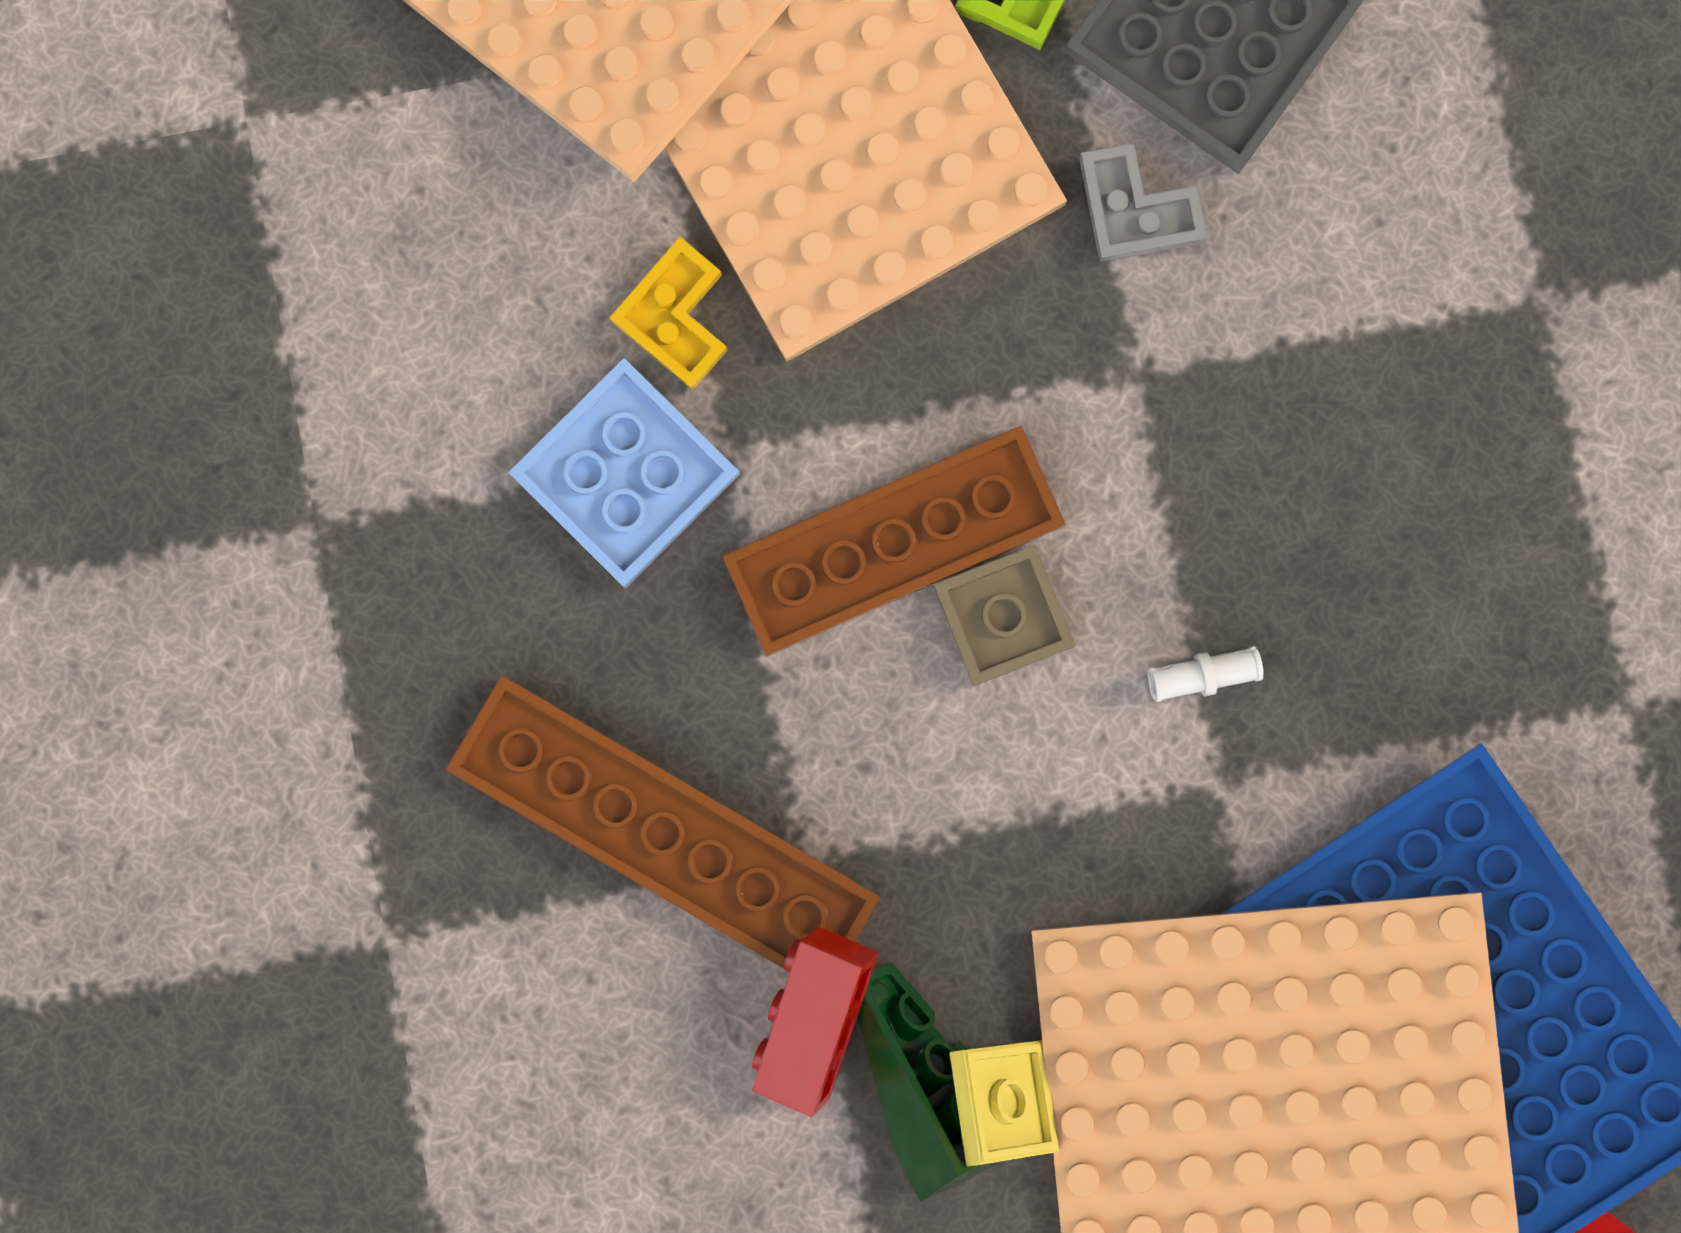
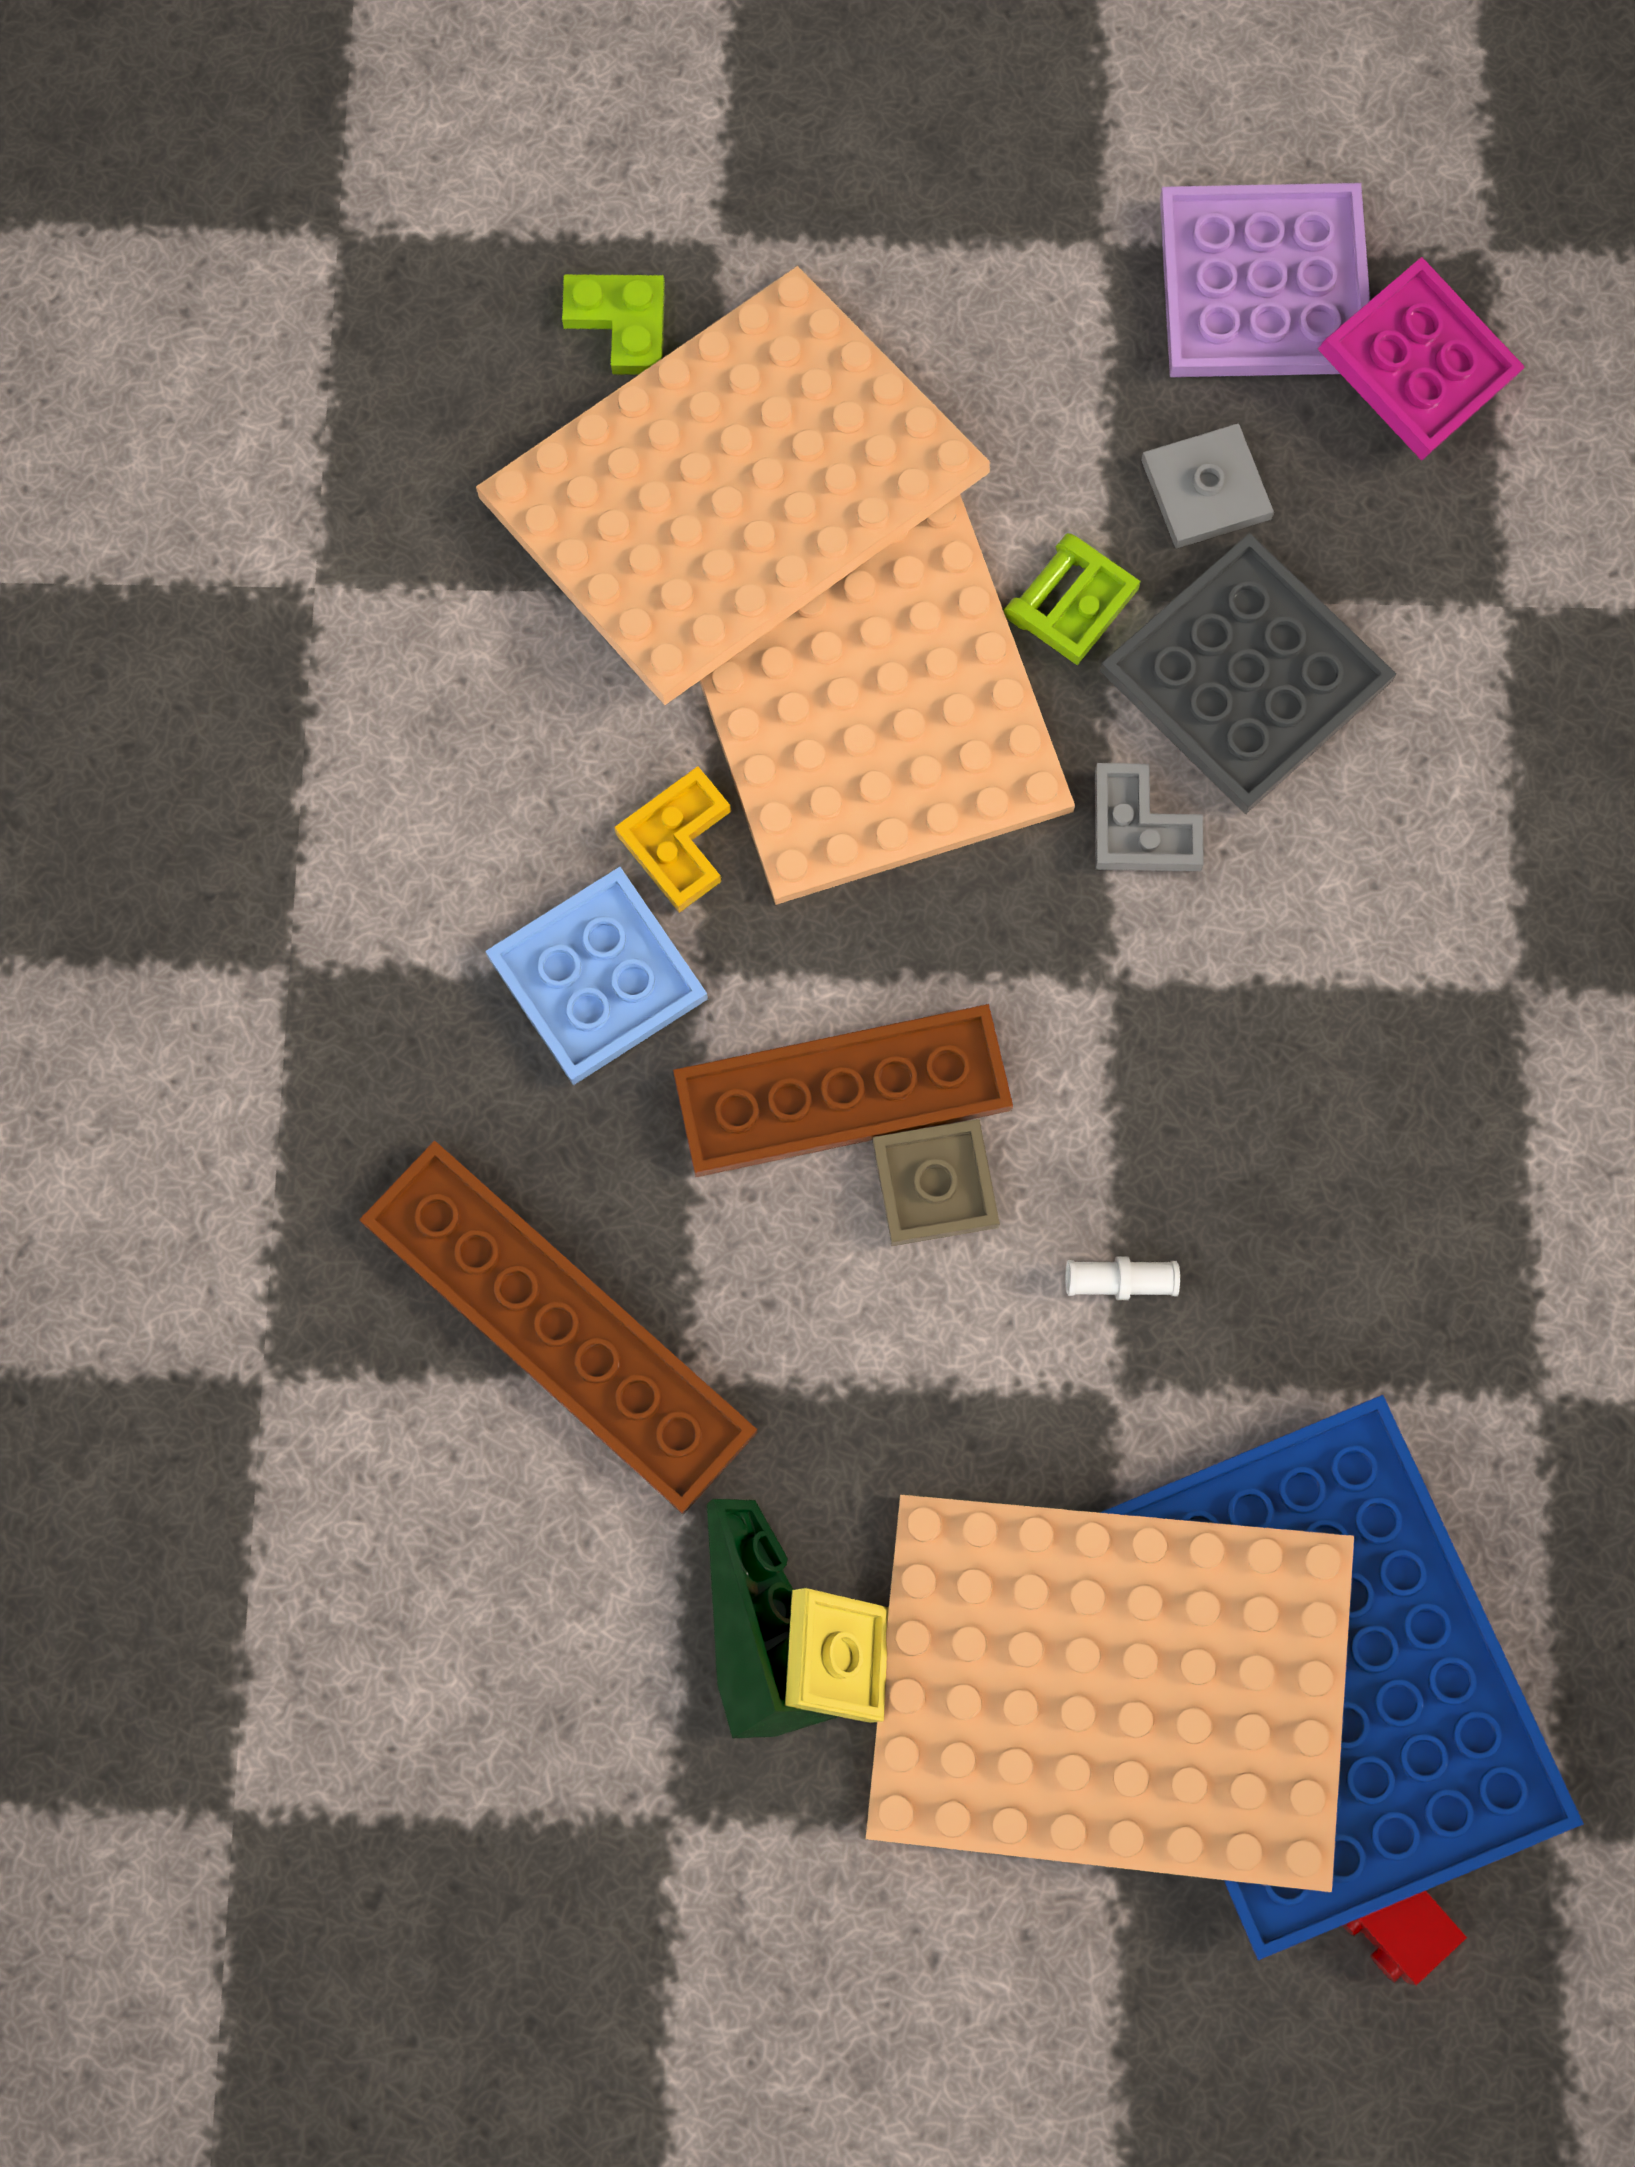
camera: 10 degrees right, 10 degrees down
(812, 1020) = (663, 1533): brick -> none

